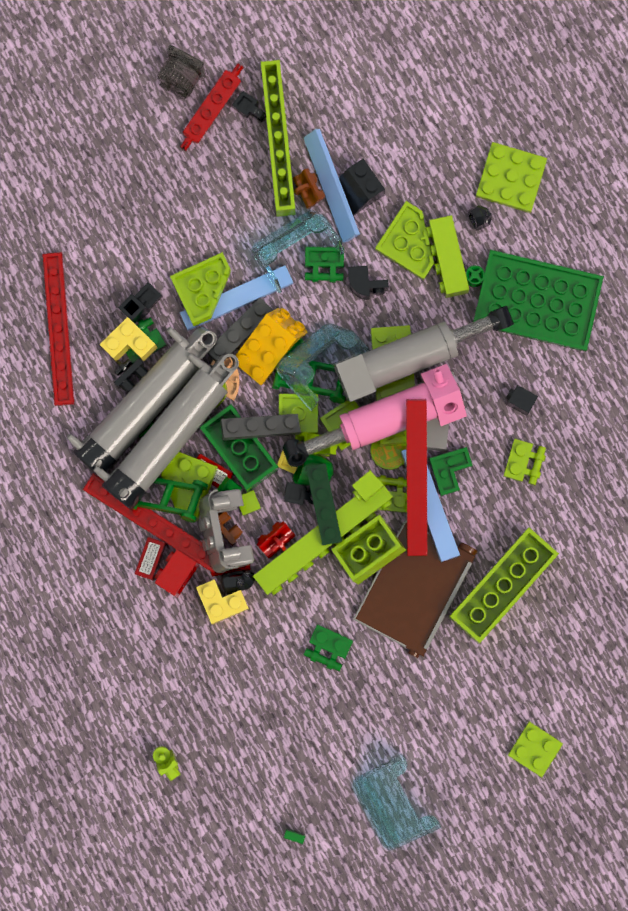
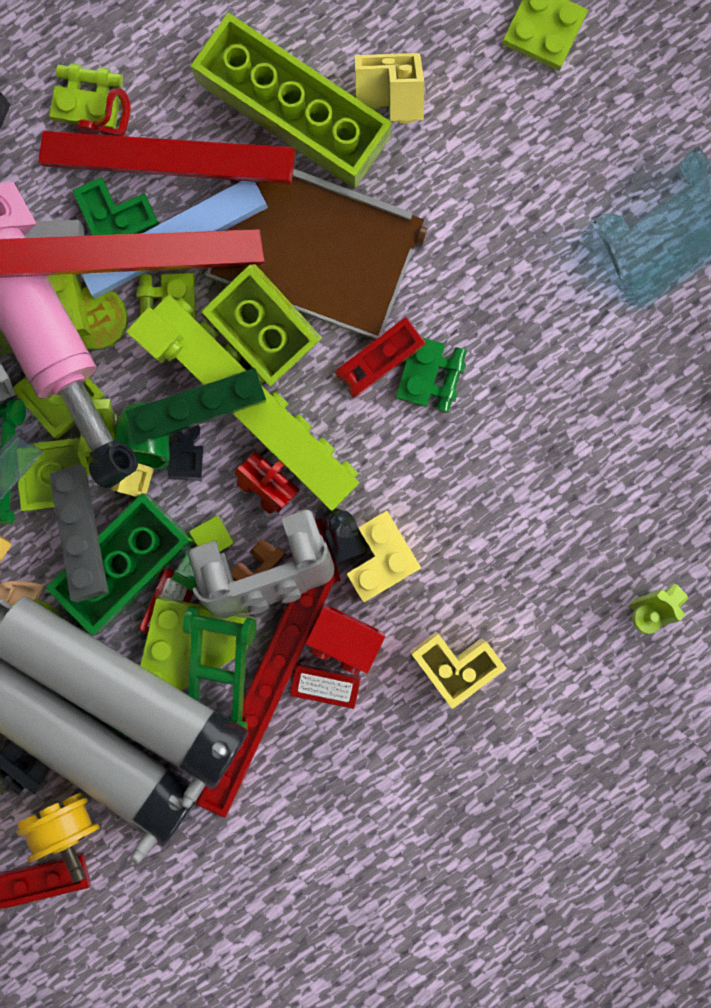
camera: 105 degrees left, 5 degrees up
(91, 393) = (58, 832): none -> yellow wheel
(145, 634) = (460, 675): none -> light yellow brick
(341, 618) = (381, 356): none -> red plate
(478, 506) = (167, 157): none -> red tile
(504, 472) = (90, 127): none -> red piece
(507, 648) = (391, 82): none -> light yellow brick

